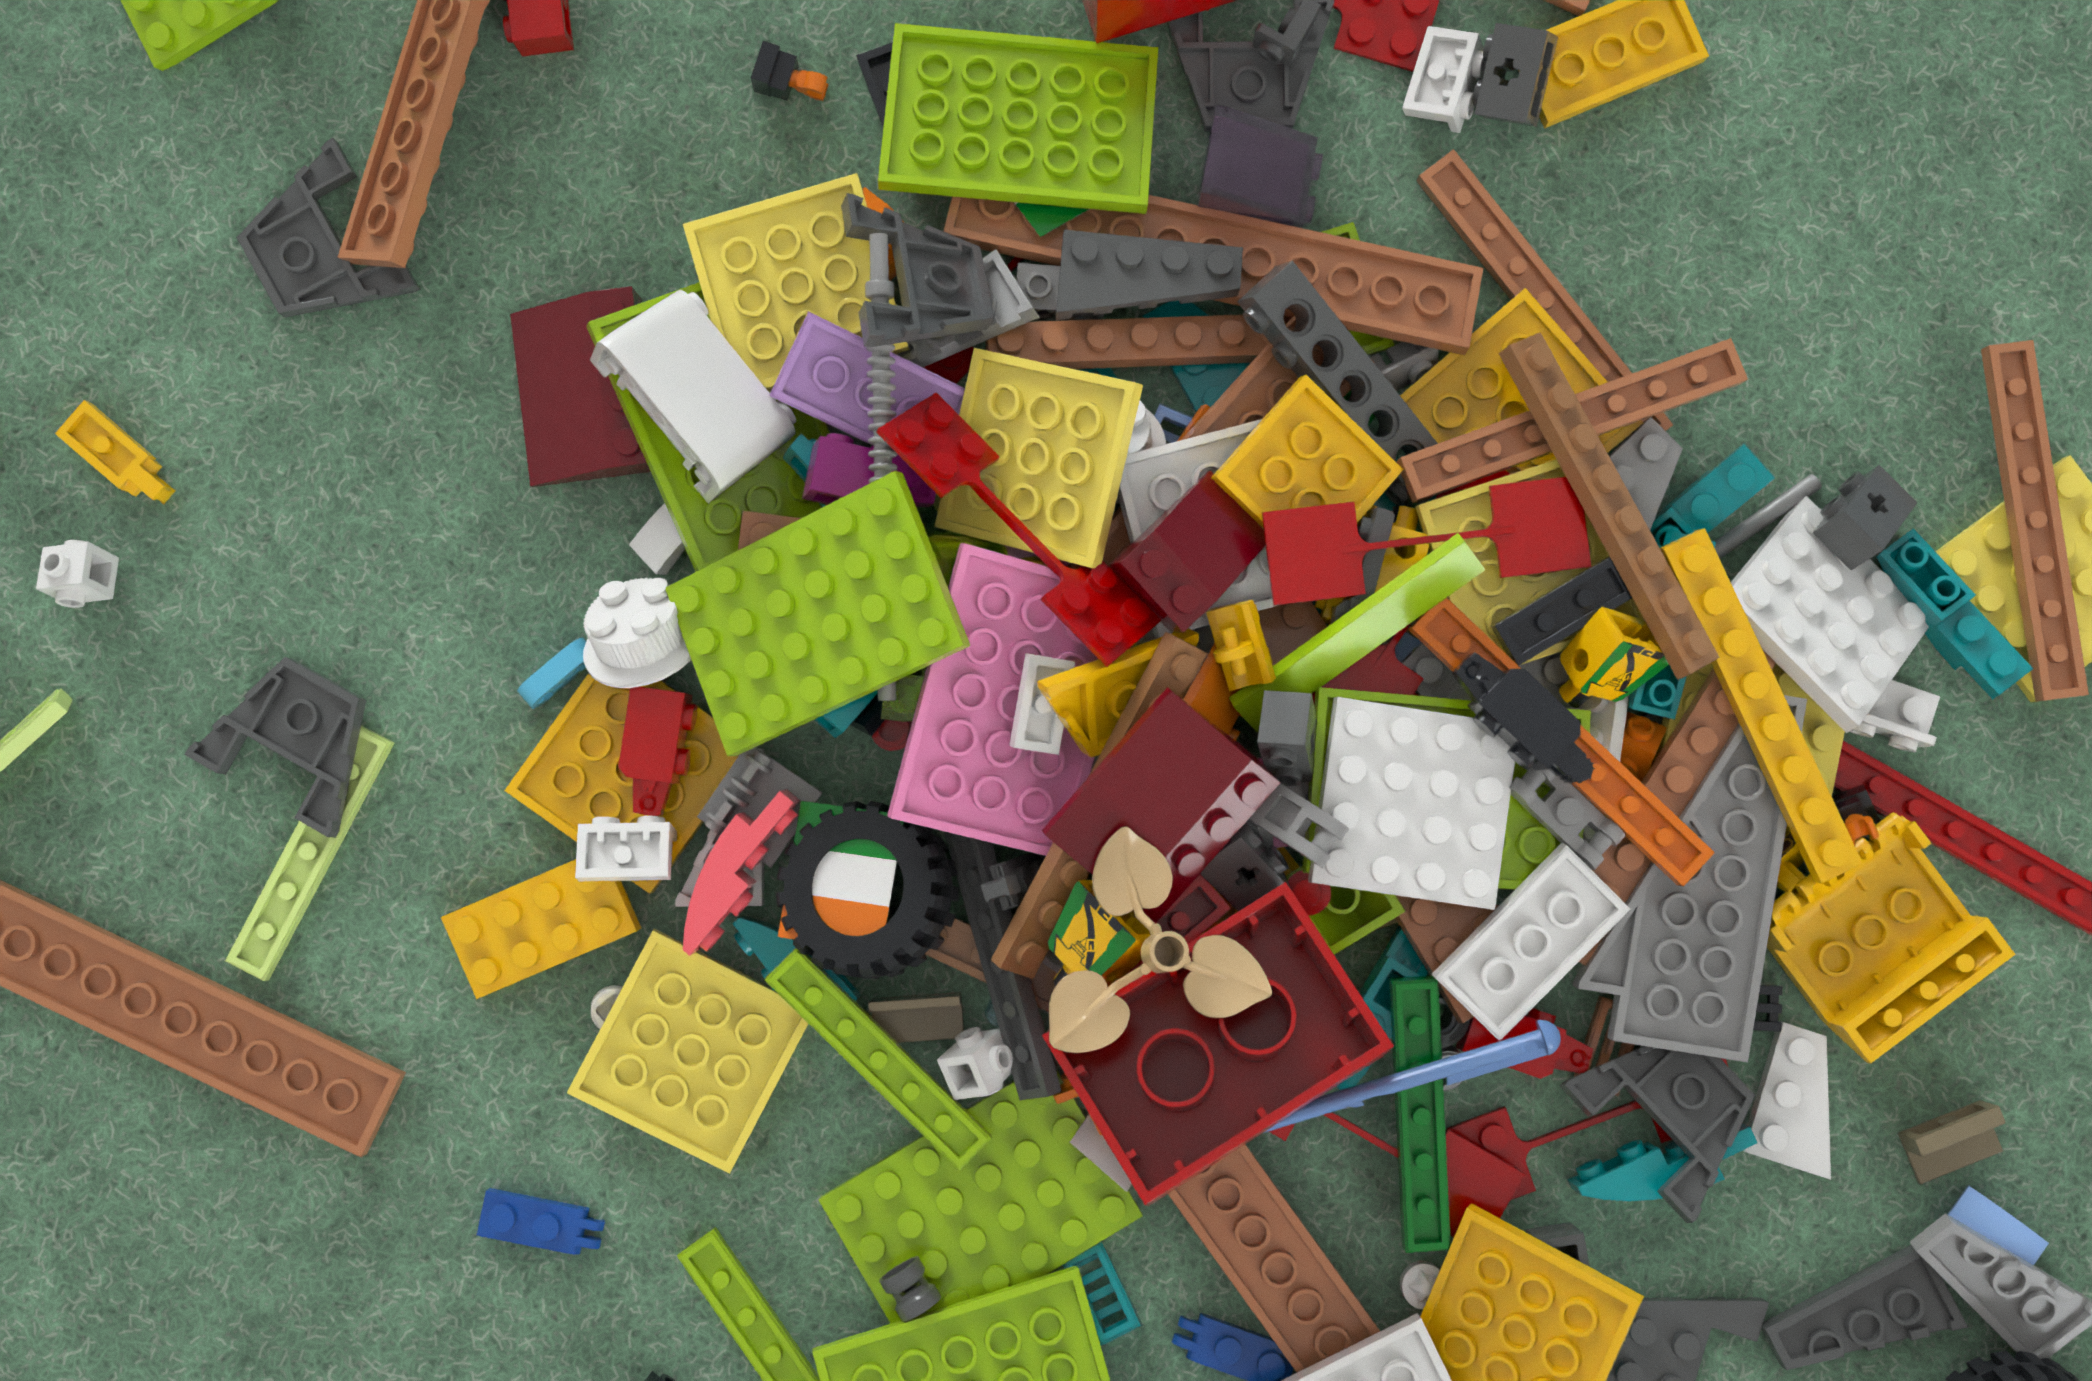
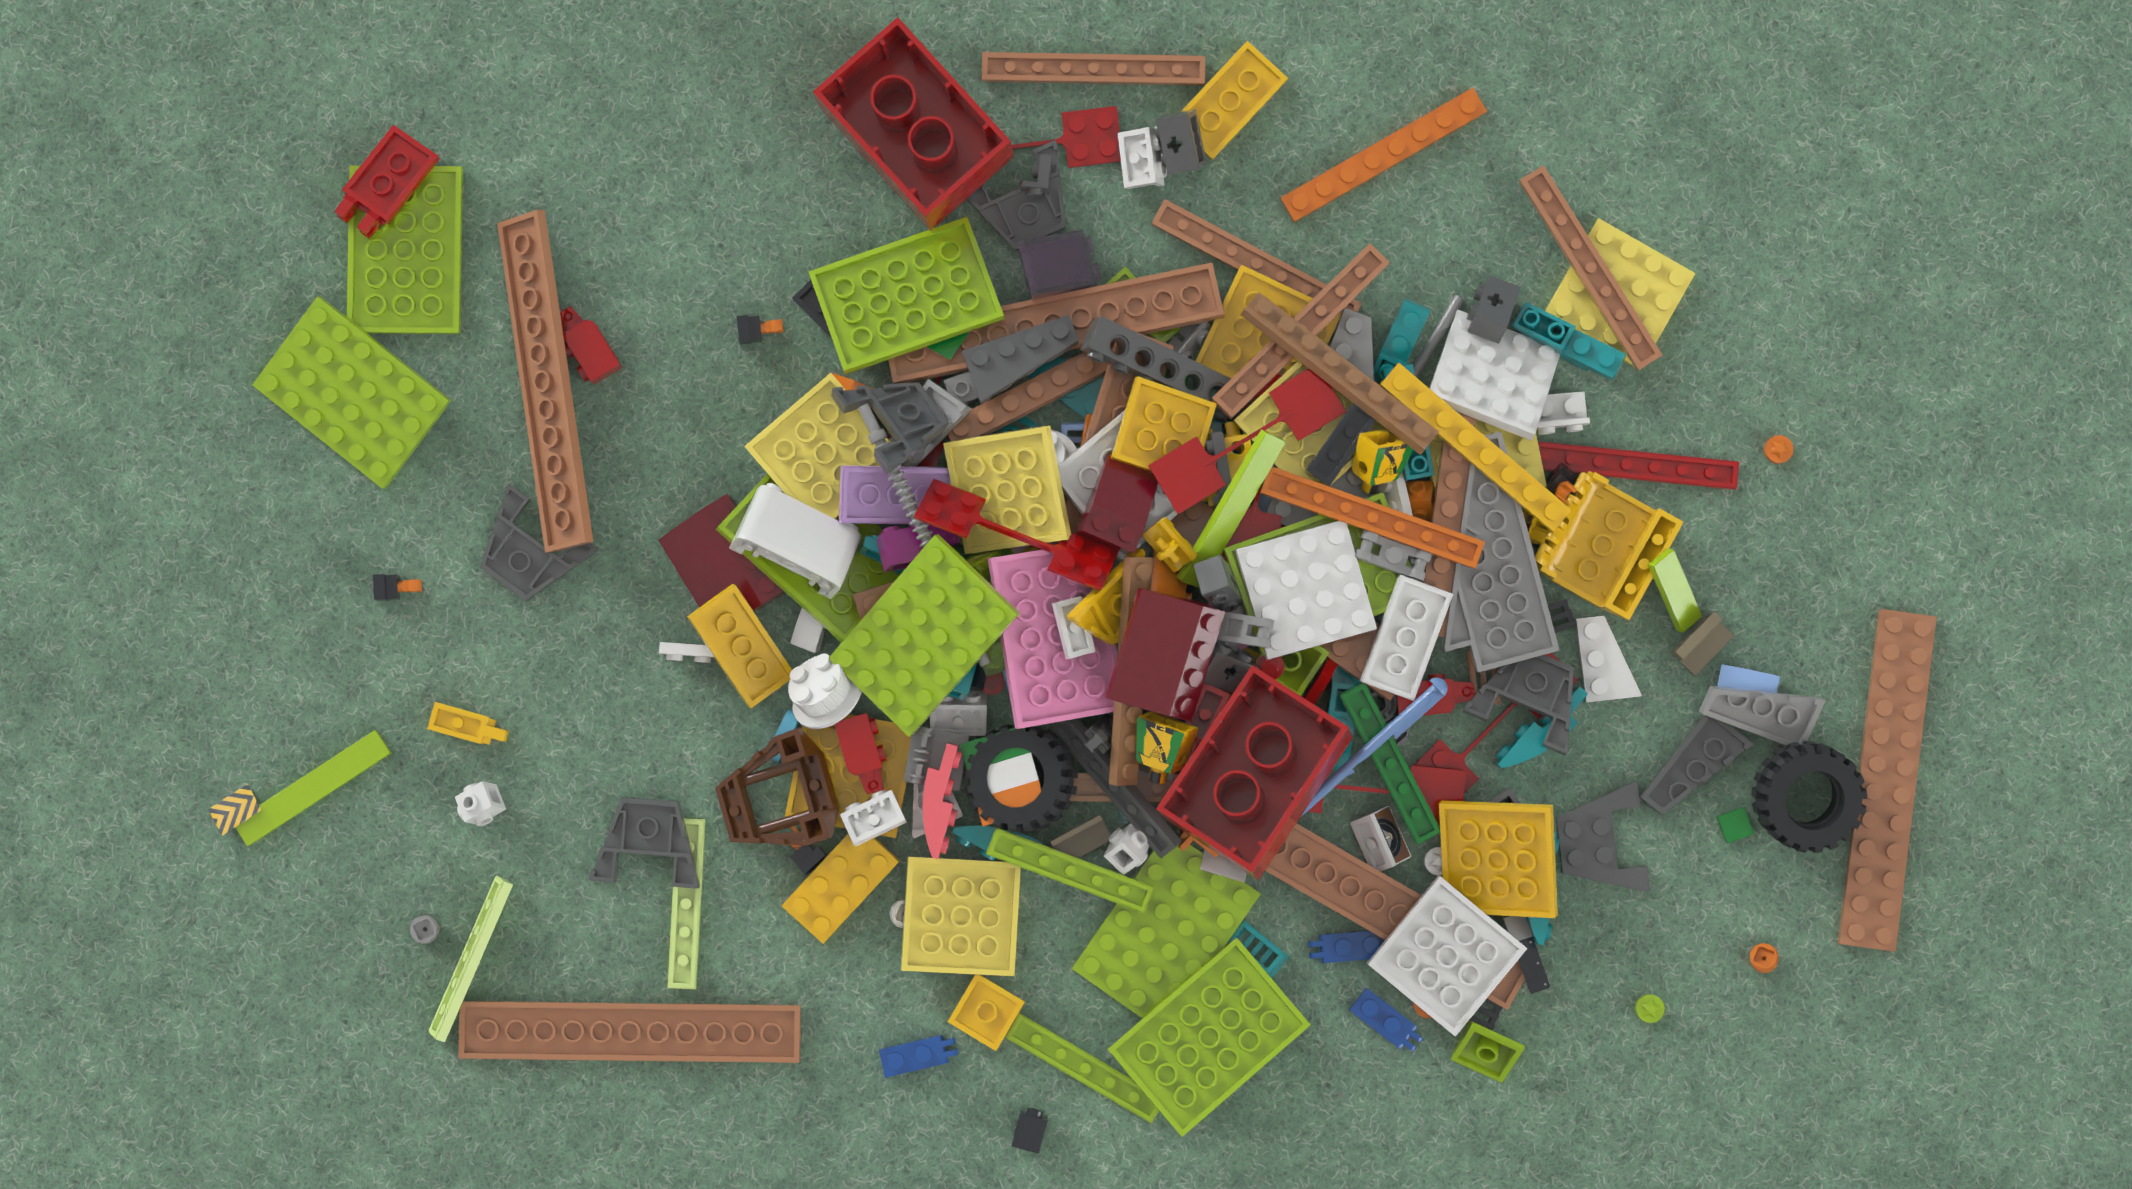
camera: 30 degrees left, 0 degrees up
(100, 210) = (389, 587): none -> black piece
(461, 483) = (676, 651): none -> white plate
(510, 861) = (806, 856): none -> black piece
(550, 513) = (741, 645): none -> yellow plate
(555, 705) = (798, 754): none -> reddish brown windscreen
(666, 1207) = (986, 1011): none -> yellow plate
(825, 761) = (962, 716): none -> white bracket
(910, 1289) = (1151, 996): dark grey wheel -> none
(1221, 975) = (1239, 733): tan plant -> none
(1353, 1216) = (1380, 839): none -> white panel
(1371, 946) = (1320, 681): none -> red tile
(1525, 717) = (1343, 514): black hinge -> none
(1796, 228) = (1383, 155): none -> orange plate
(1954, 1048) = (1675, 590): none -> lime tile

